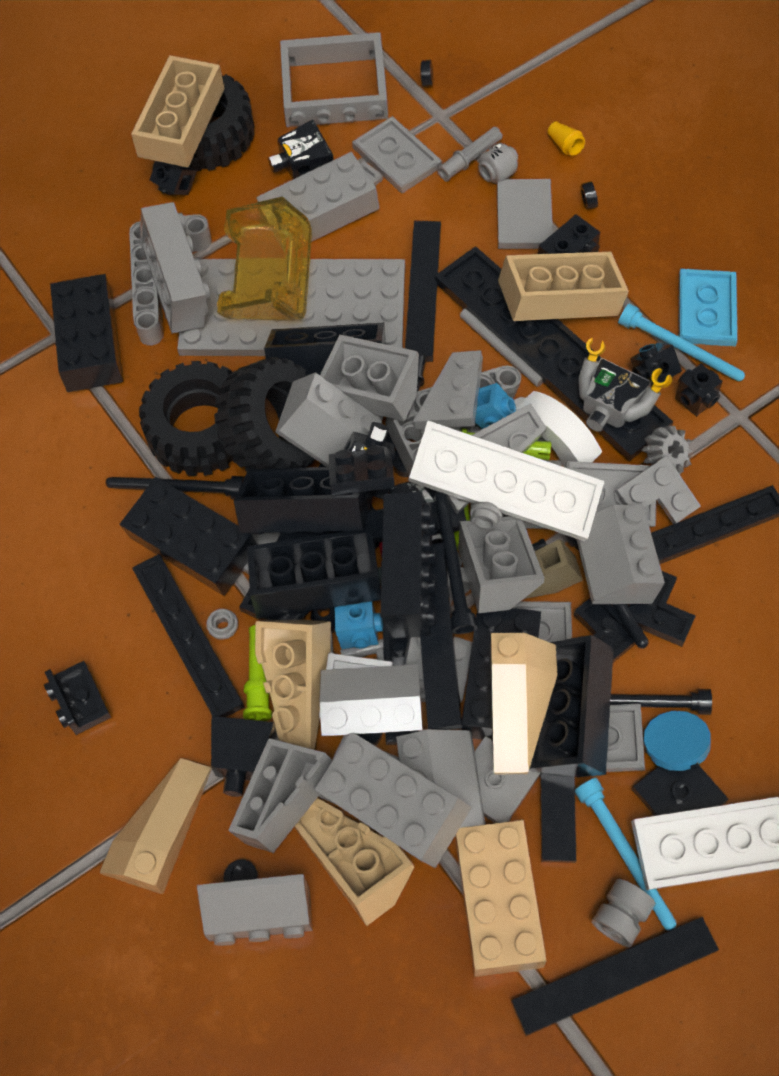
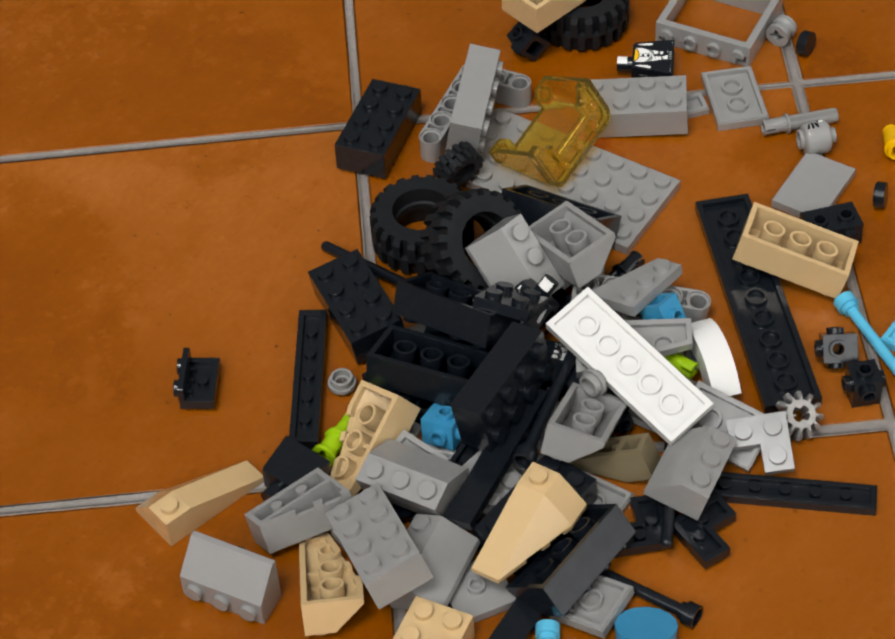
camera: 30 degrees right, 15 degrees down
(197, 339) = (459, 164): none -> black tyre
(397, 69) = (781, 30): none -> light grey wheel
(423, 288) = (682, 208): black tile -> none
(502, 348) = (715, 281): light grey bar -> none
(615, 393) = (779, 348): torso -> none

